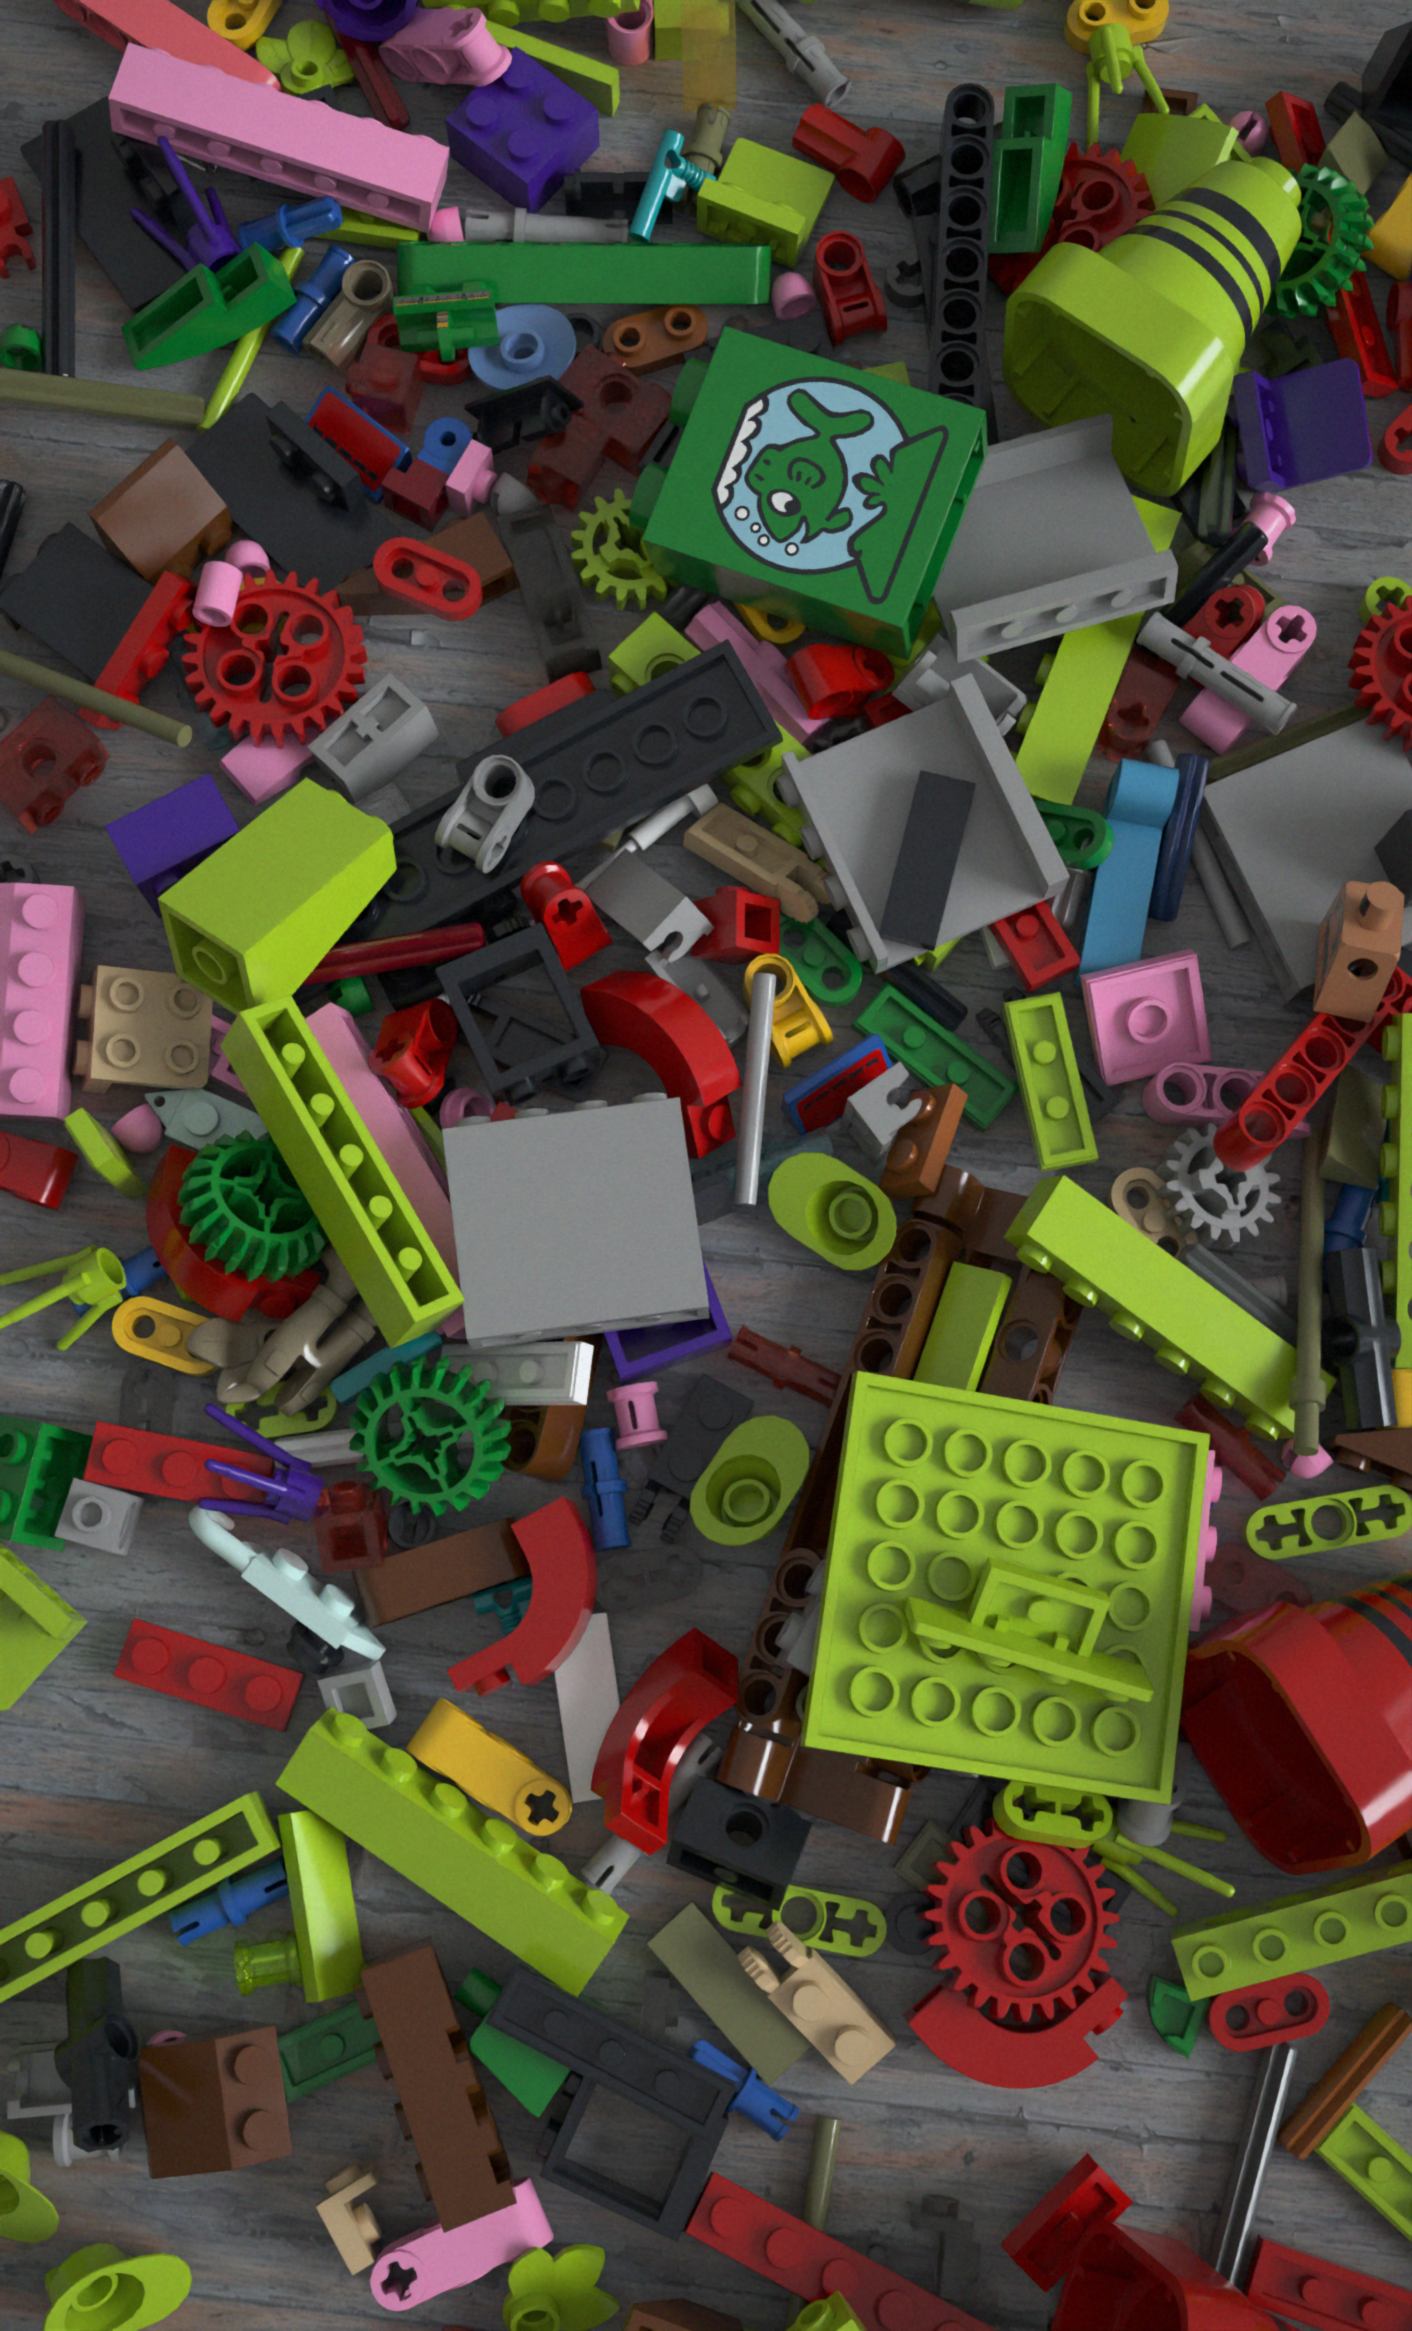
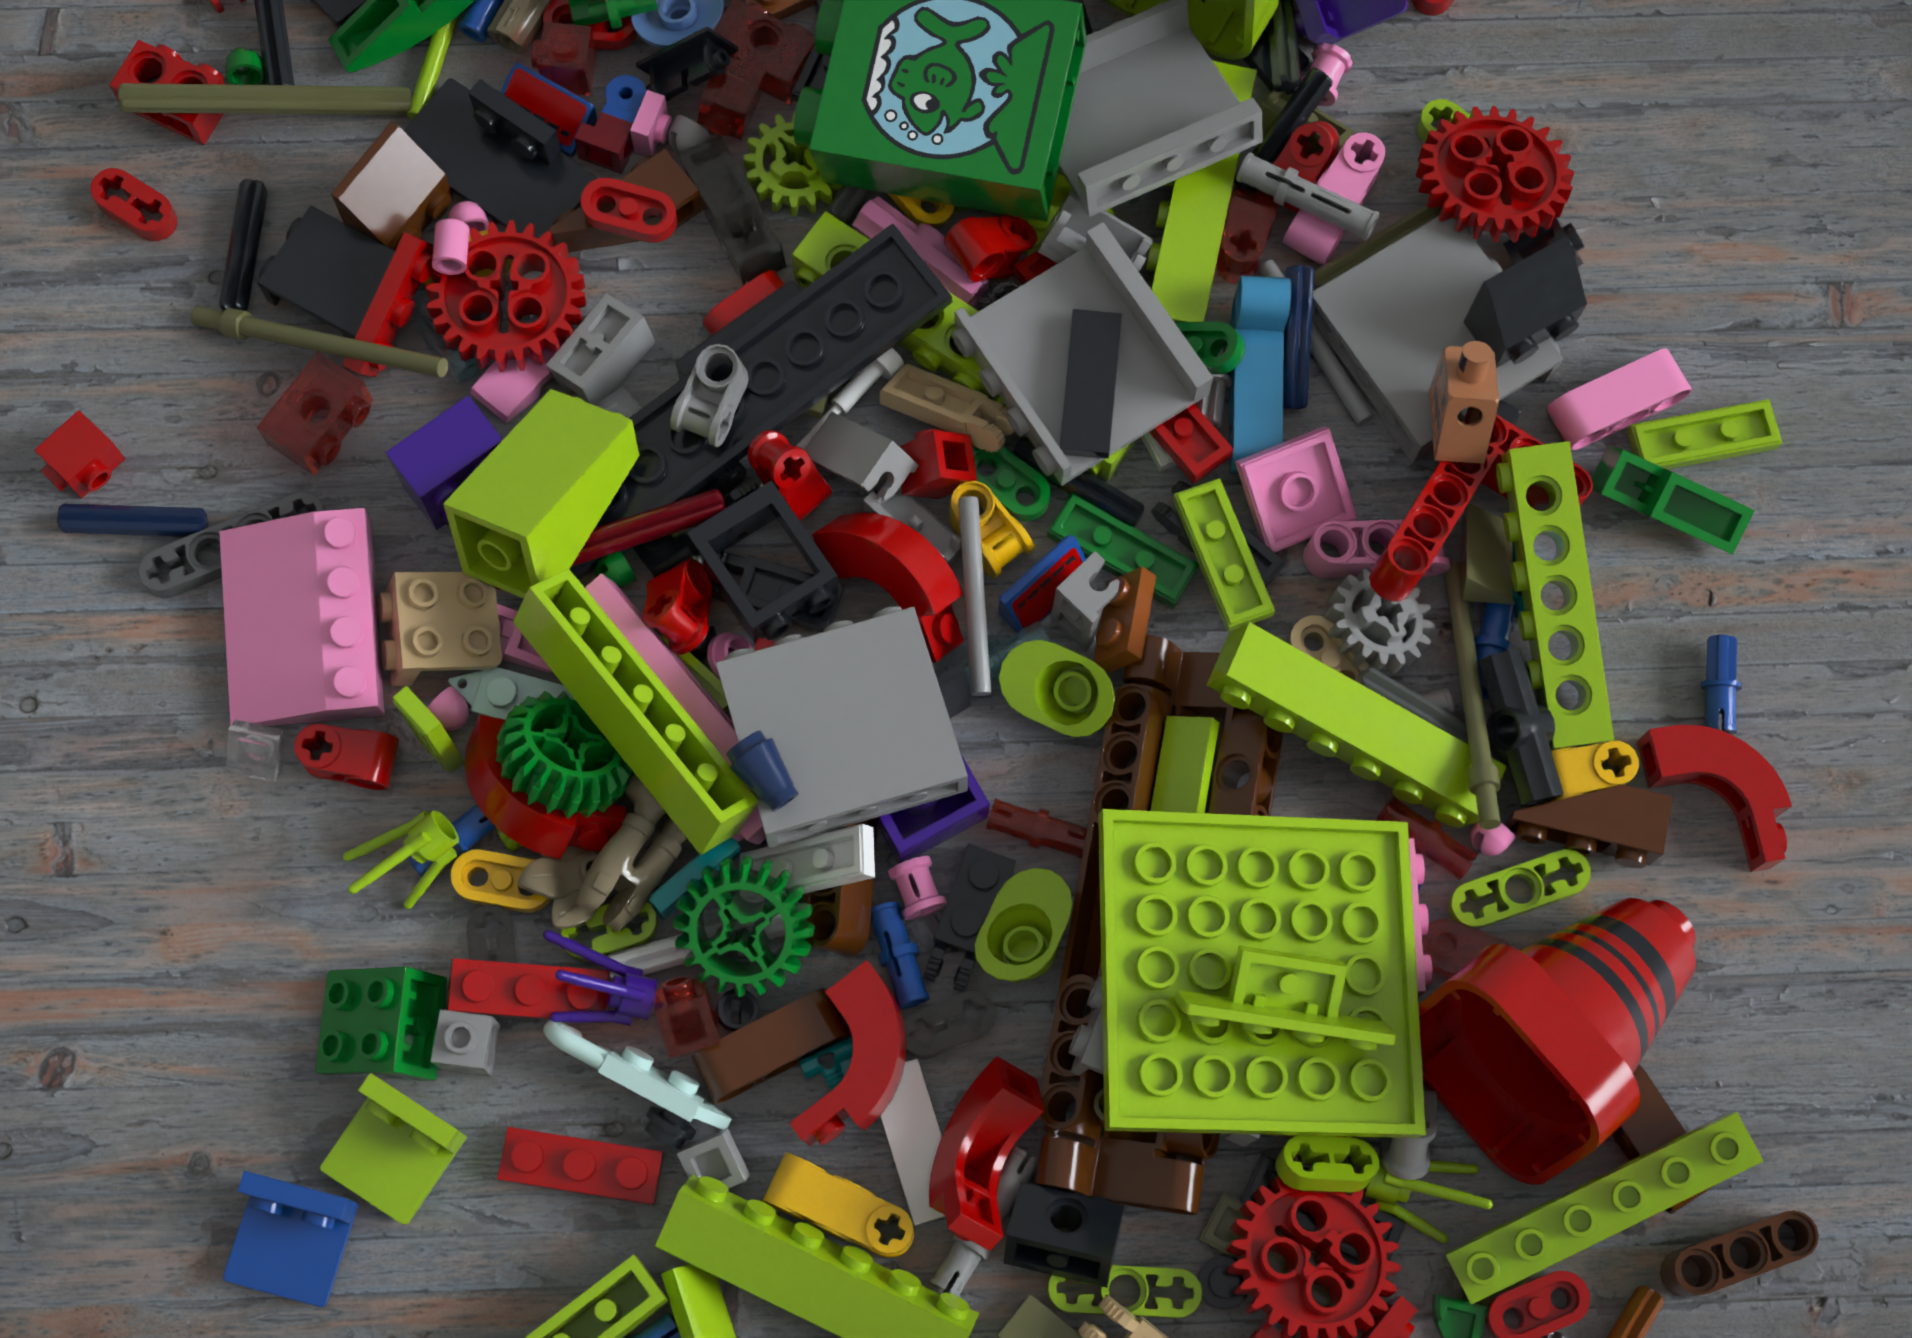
camera: 10 degrees left, 5 degrees down
(474, 1266) = (762, 770): none -> dark blue cone

